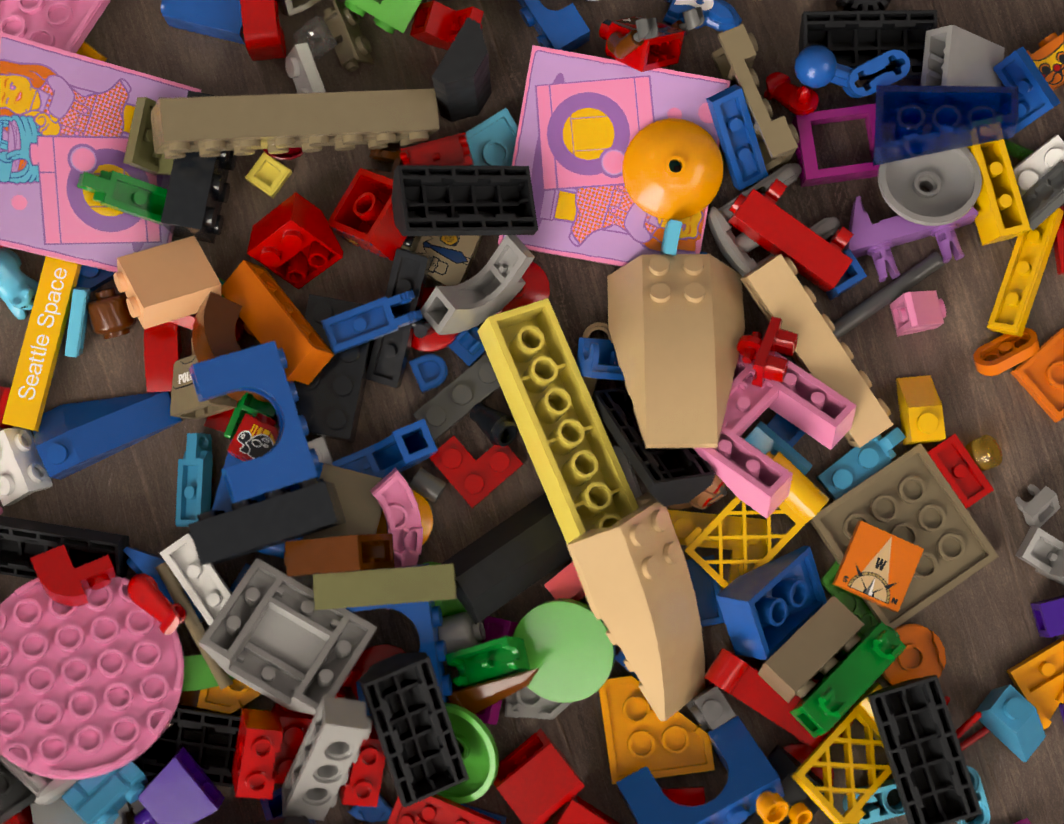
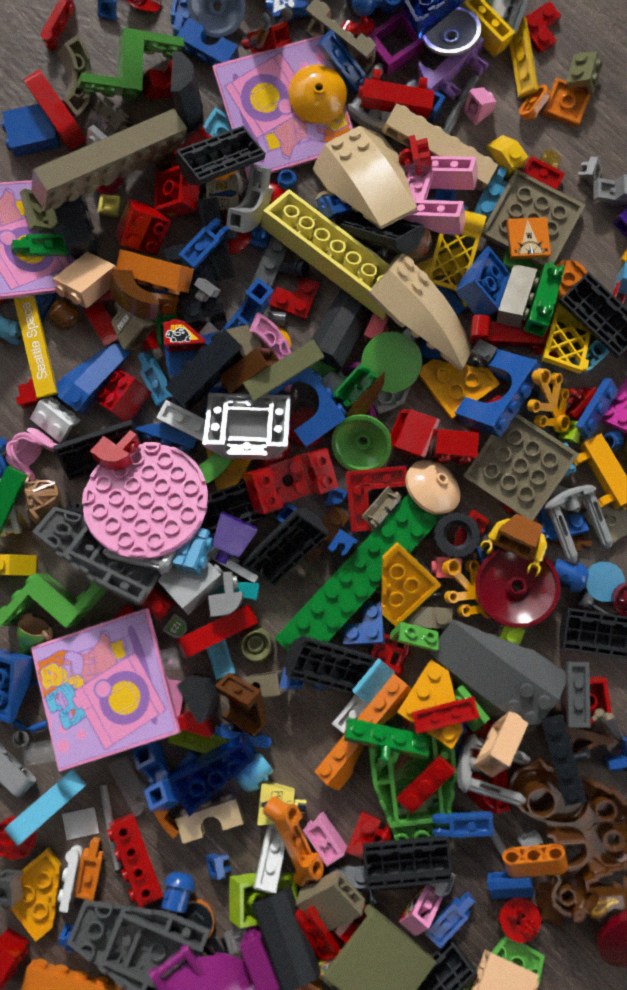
camera: 30 degrees left, 0 degrees up
(77, 322) = (49, 327): medium azure tile -> none
(132, 484) = (123, 395): none -> red slope
(145, 593) = (162, 442): red piece -> none
(192, 622) = (194, 446): dark tan bar -> none
(261, 372) = (161, 292): blue arch -> none
(325, 758) = (299, 469): light grey brick -> none
(336, 395) = (206, 290): none -> light grey tile
(413, 726) = (337, 433): black piece -> none
(429, 371) = (246, 262): blue tile -> none
(558, 274) = (286, 179): none -> blue plate
(671, 237) = (335, 127): medium azure tile -> none

